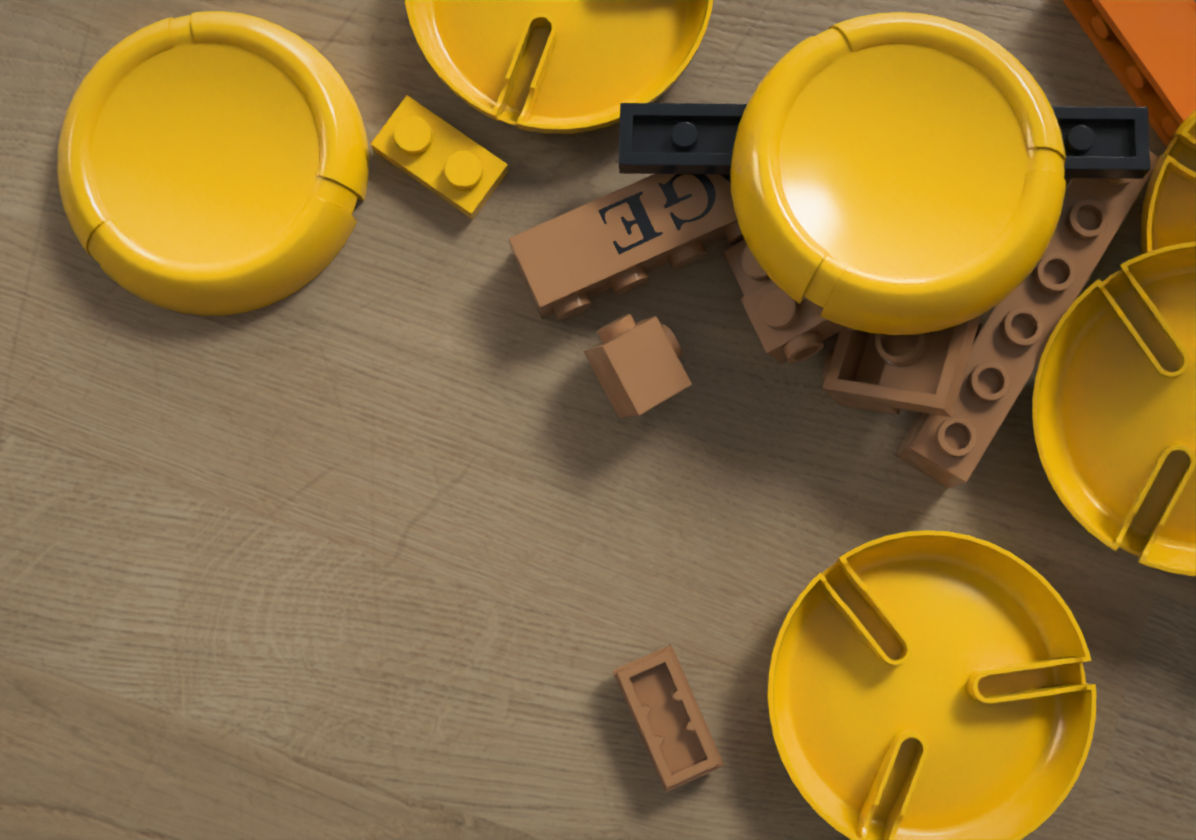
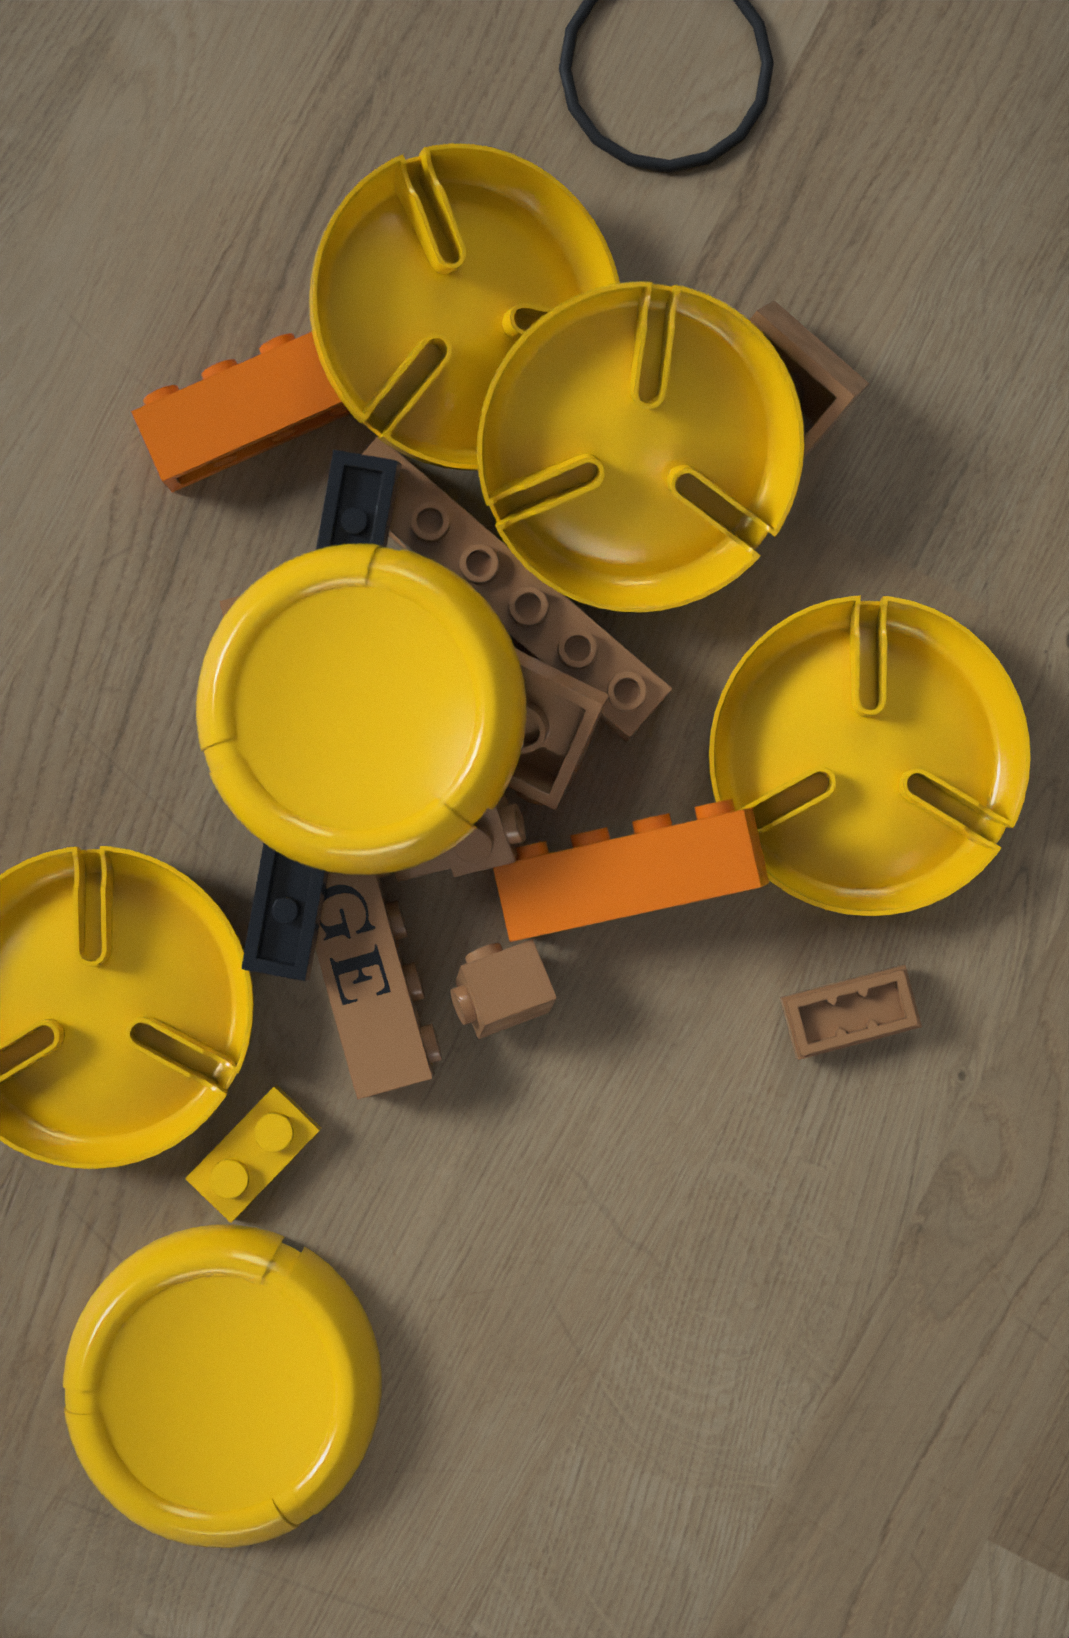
camera: 80 degrees left, 5 degrees up
(775, 473) = (631, 873): none -> orange brick

